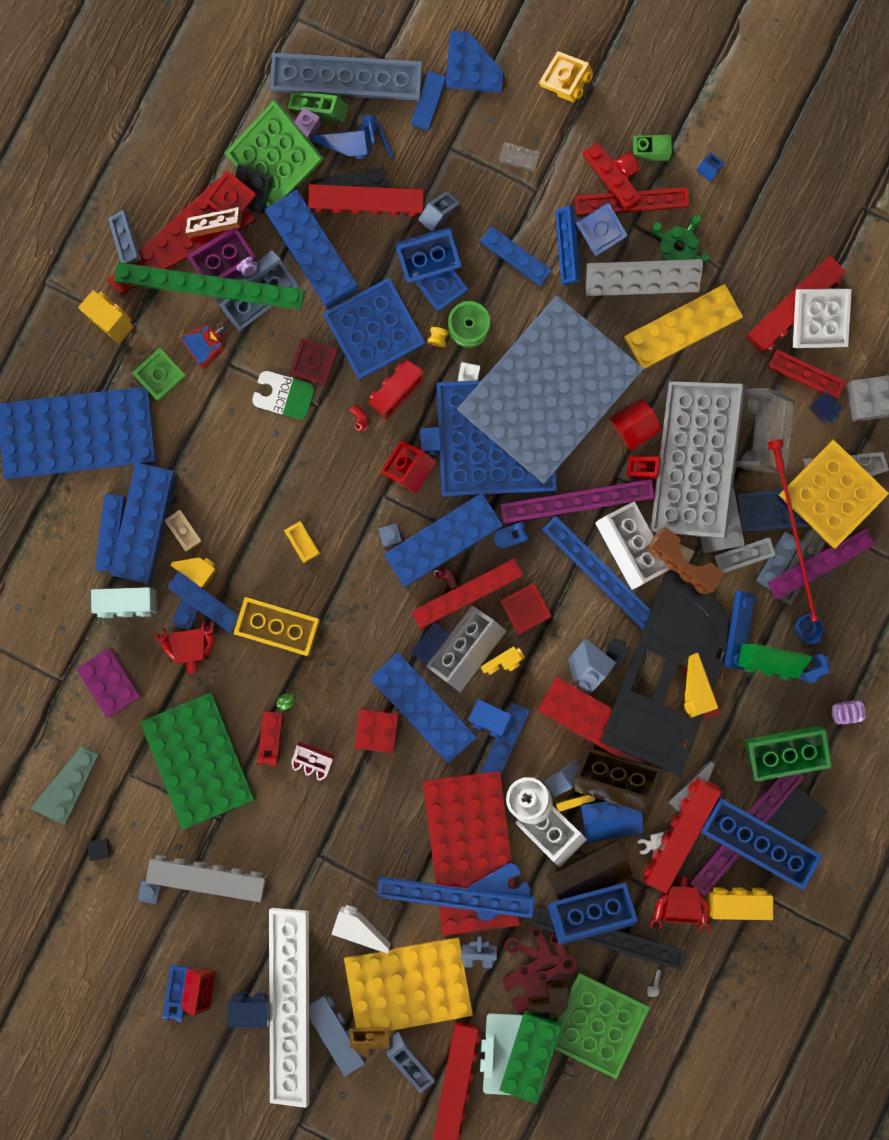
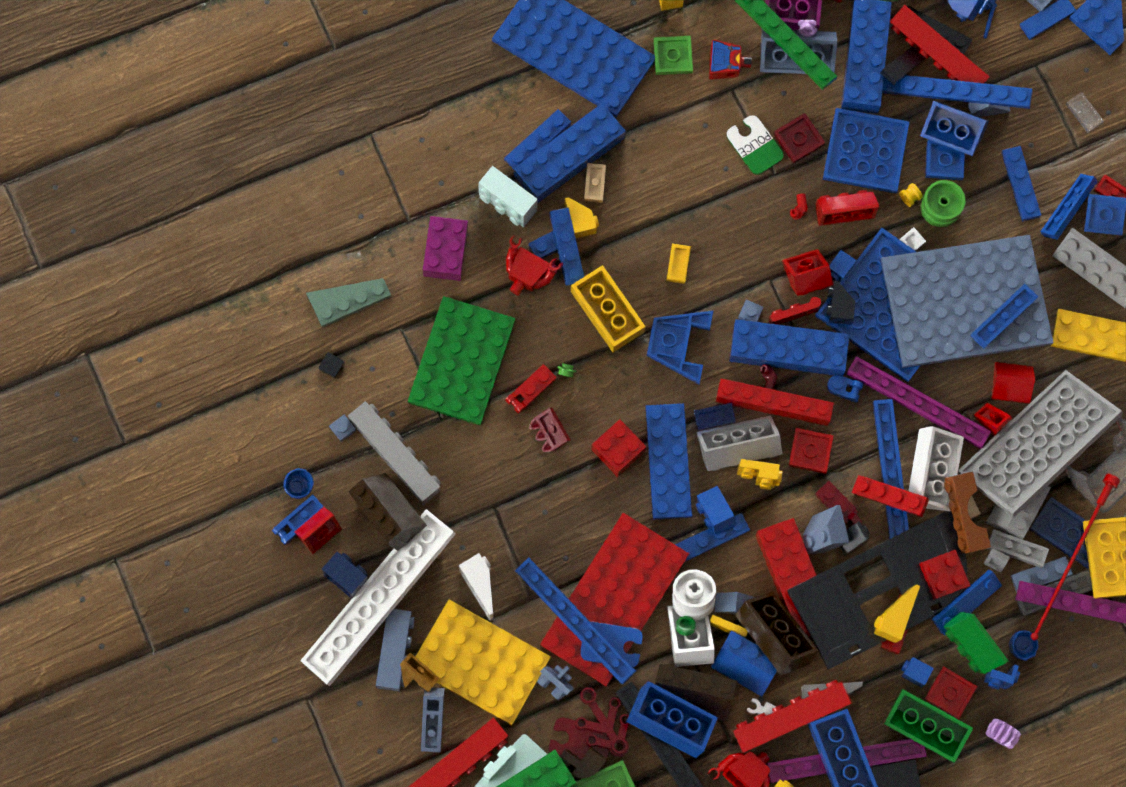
camera: 30 degrees right, 10 degrees down
(152, 967) = (298, 483): none -> blue hair
(239, 934) = (387, 509): none -> dark brown slope
(347, 235) = (902, 65): none -> black tile
(347, 612) = (670, 341): none -> blue wing
(407, 222) = (960, 91): none -> blue plate
(424, 507) = (796, 311): none -> red plate
(457, 473) = (842, 305): none -> black slope
(543, 830) = (685, 625): none -> green tile
(578, 632) = (831, 496): none -> dark red hinge
(590, 380) = (1004, 316): none -> blue plate
(617, 596) = (890, 495): none -> red plate
(706, 623) = (944, 574): none -> red plate
(736, 578) = (996, 560): none -> light grey plate
(744, 717) = (916, 671): none -> blue brick
(782, 711) = (950, 693): none -> red tile

